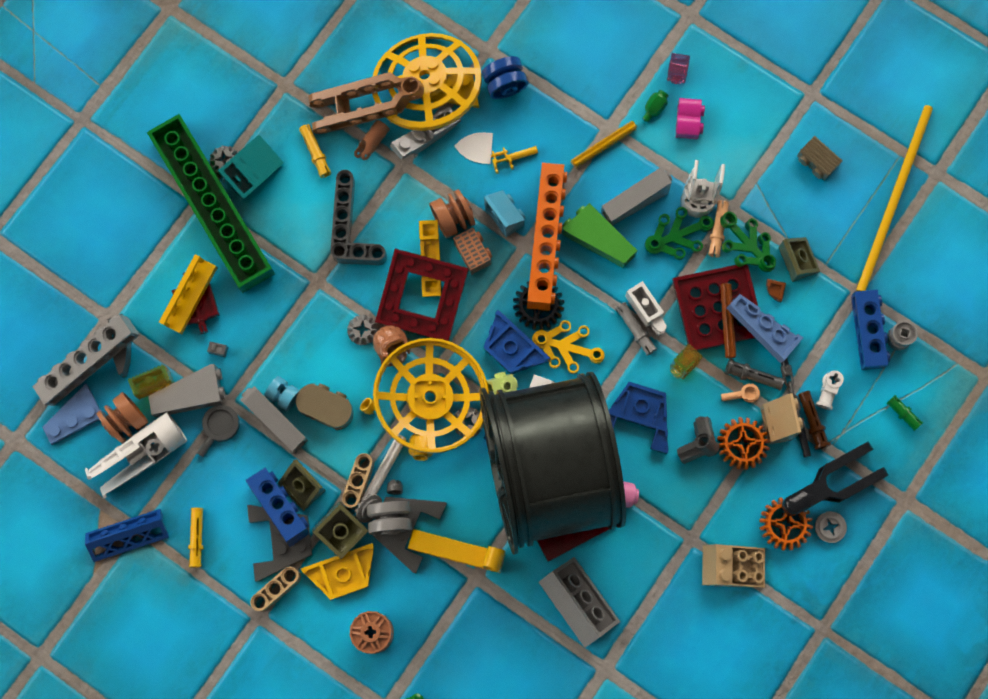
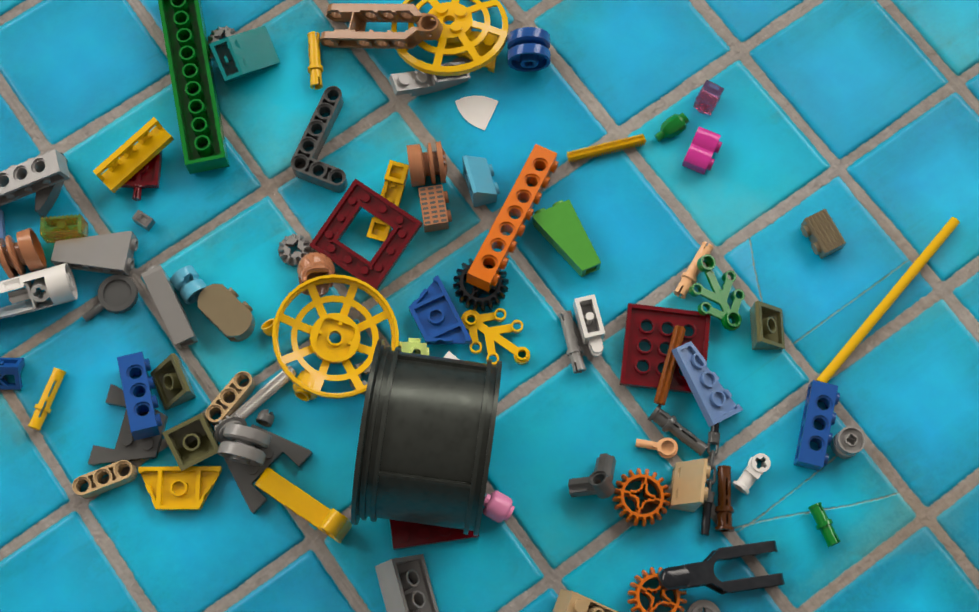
camera: 15 degrees right, 5 degrees down
(371, 140) = (375, 67): nougat piece -> none
(380, 640) = (187, 569): nougat wheel -> none
(511, 157) = (509, 130): yellow piece -> none
(637, 196) = (621, 209): light grey slope -> none
(645, 408) = (548, 423): blue wing -> none
(676, 235) = (647, 262): green plant -> none
(685, 362) = (610, 392): clear yellow brick -> none
(701, 192) = (686, 225): white piece -> none
(775, 289) = (731, 351): dark orange tile -> none

